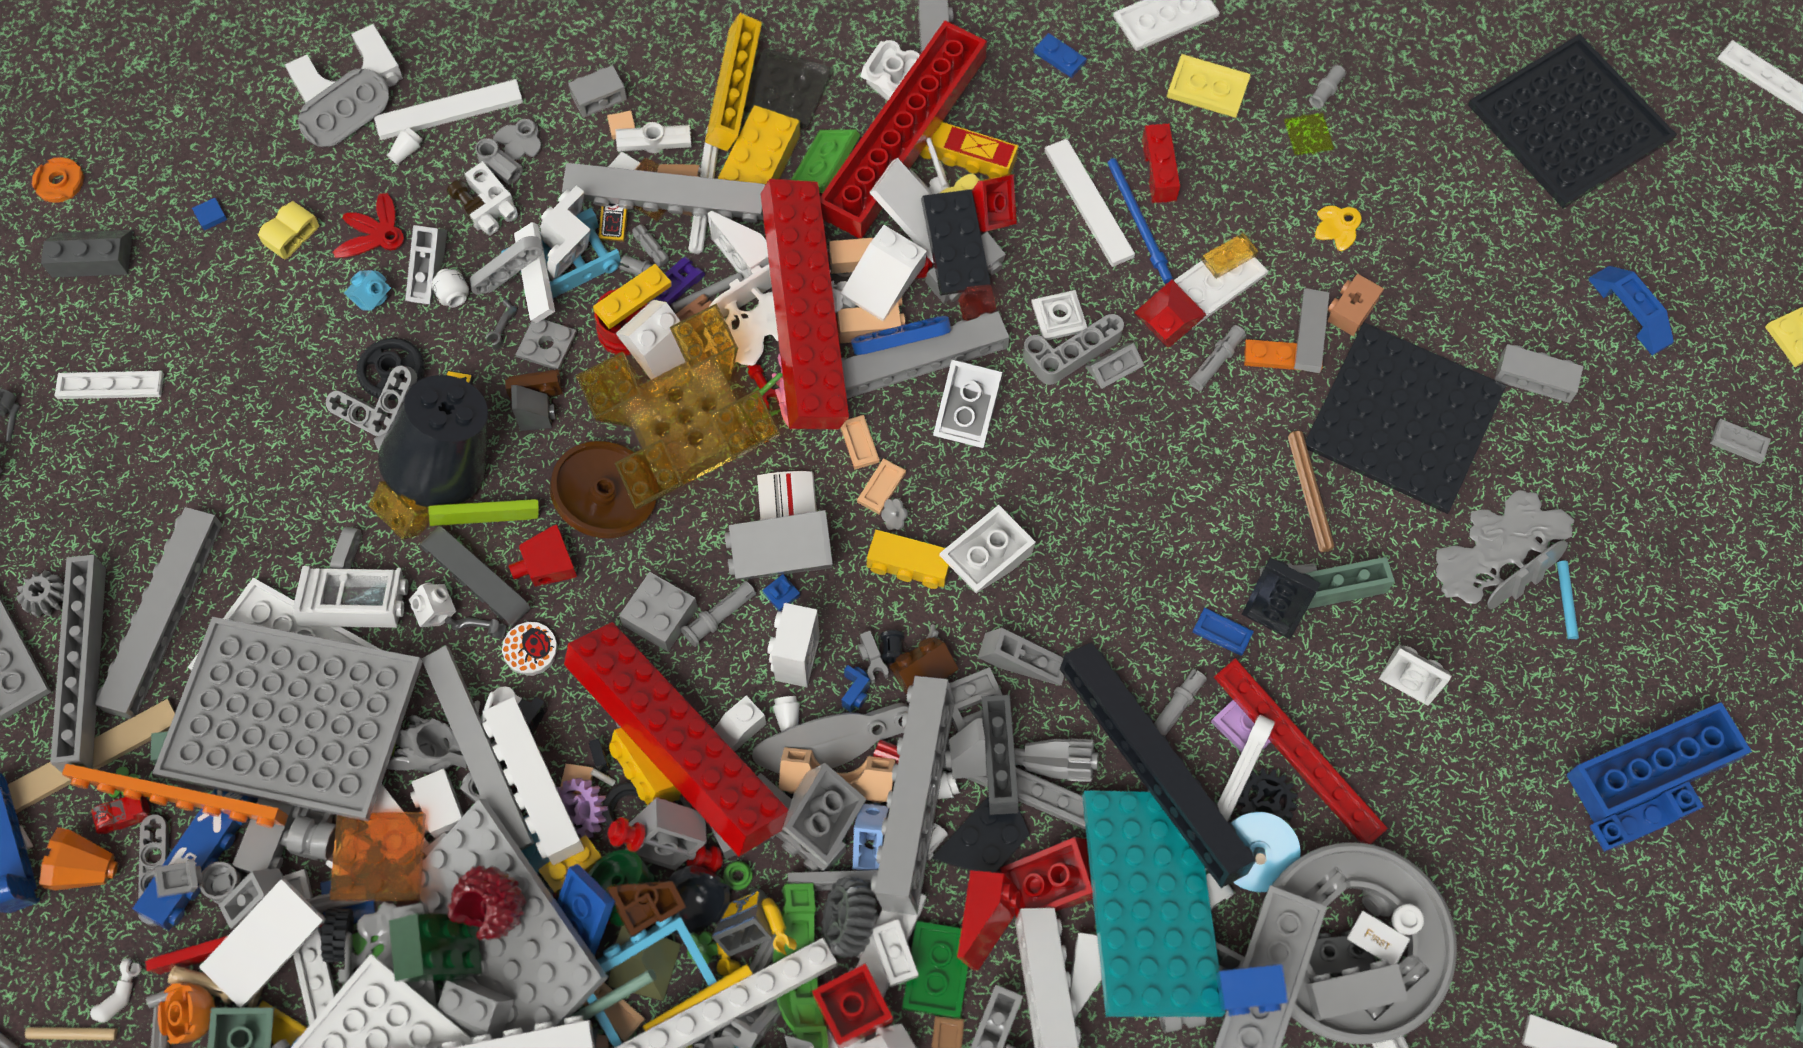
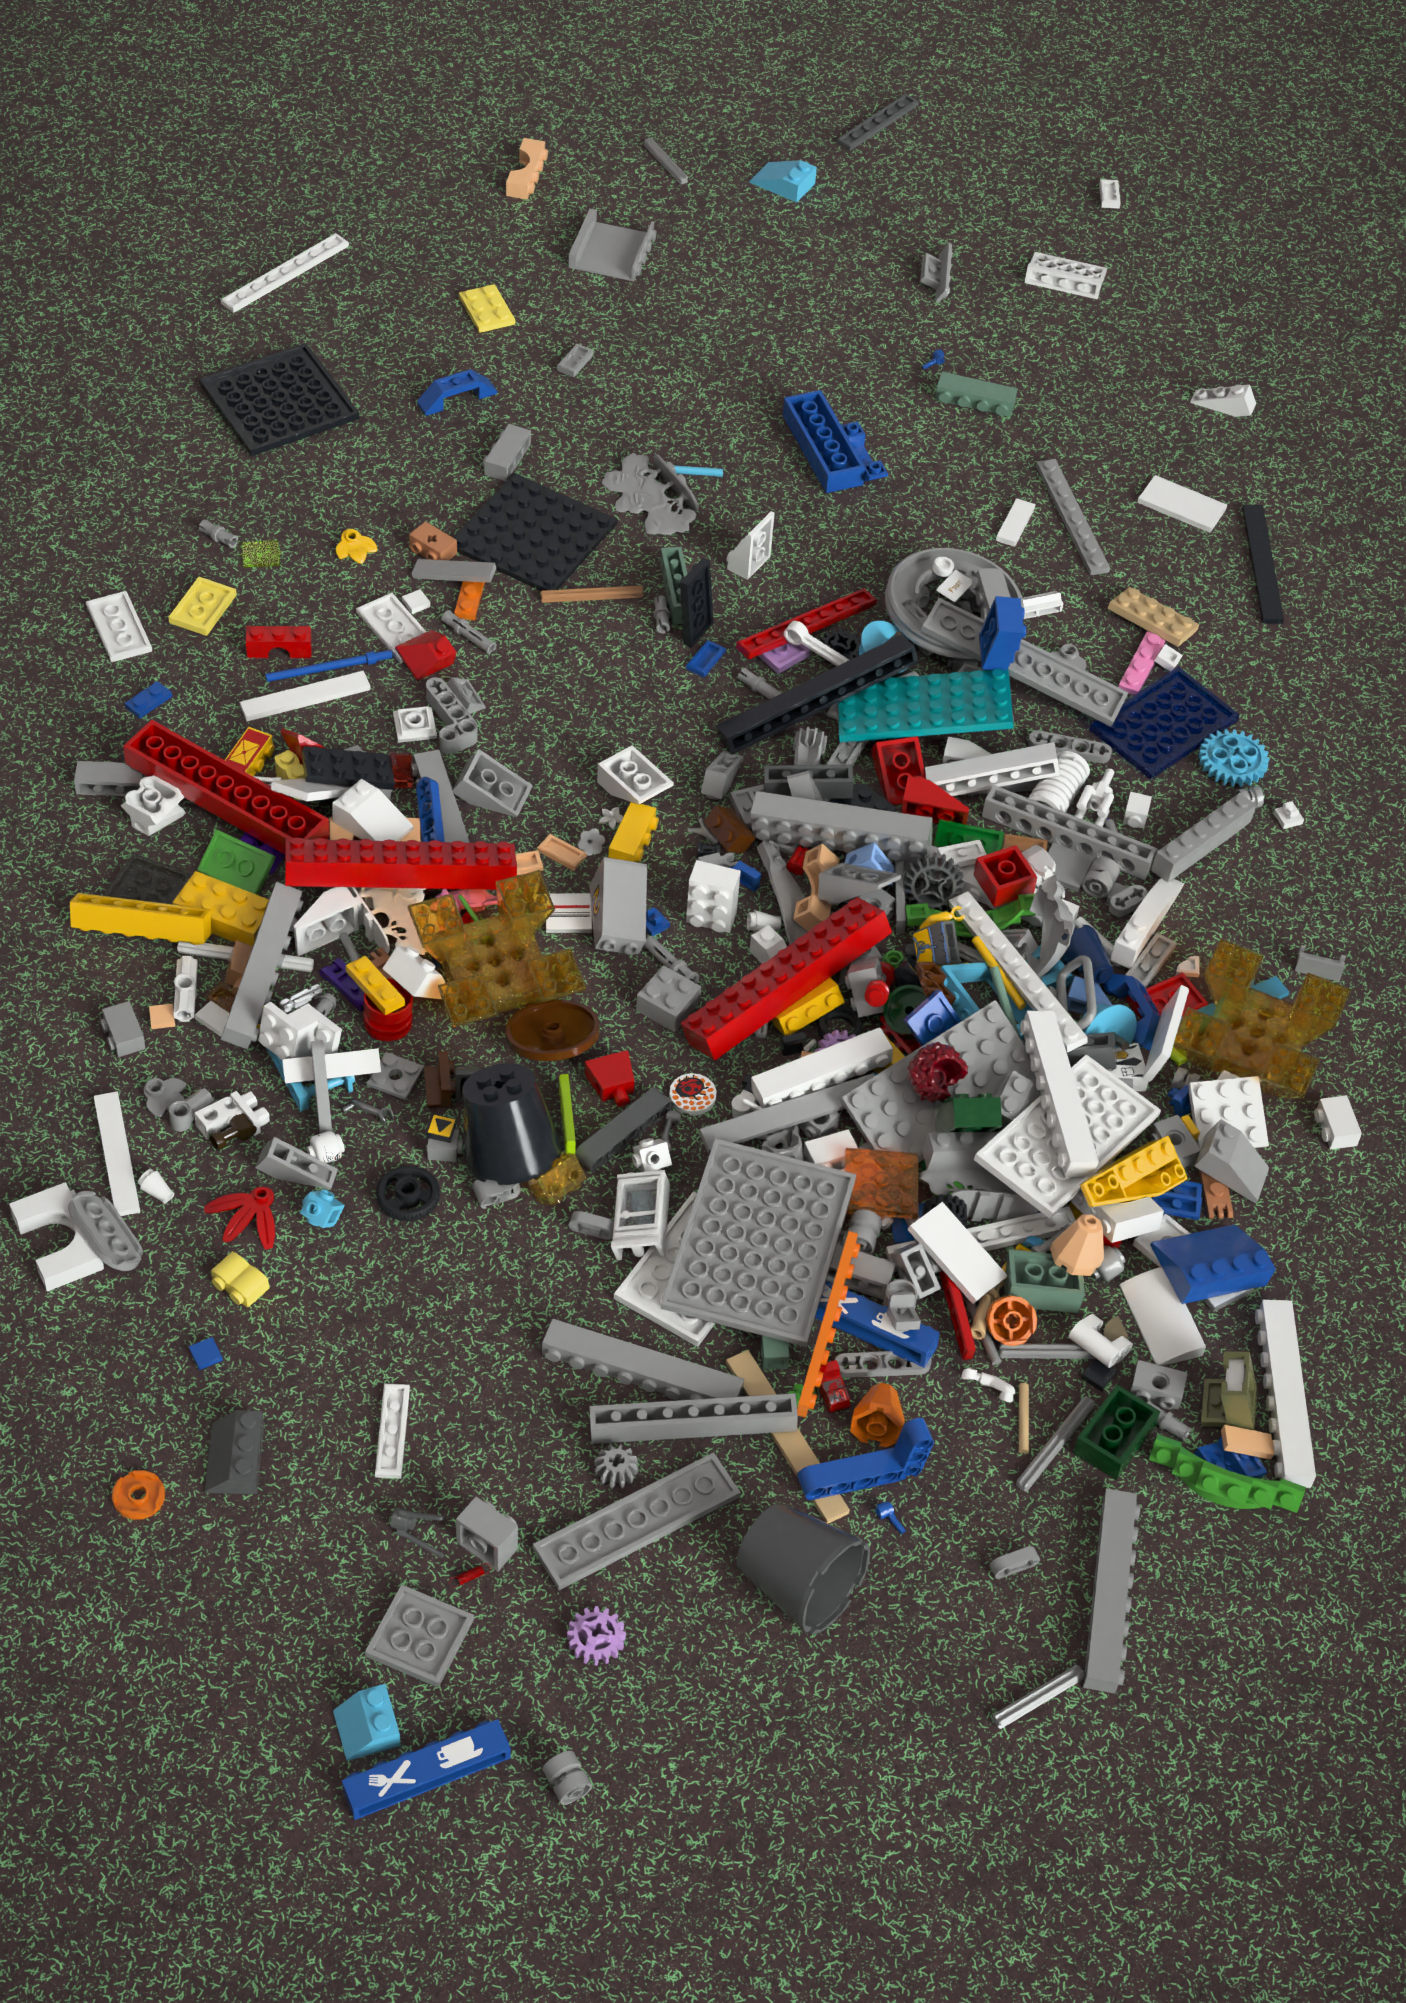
camera: 90 degrees left, 15 degrees down
(374, 414) = (455, 1202): light grey beam -> none
(942, 536) = (611, 817): none -> white plant
(1229, 255) = (376, 610): clear yellow plate -> none
(1260, 298) = (416, 601): none -> white tile

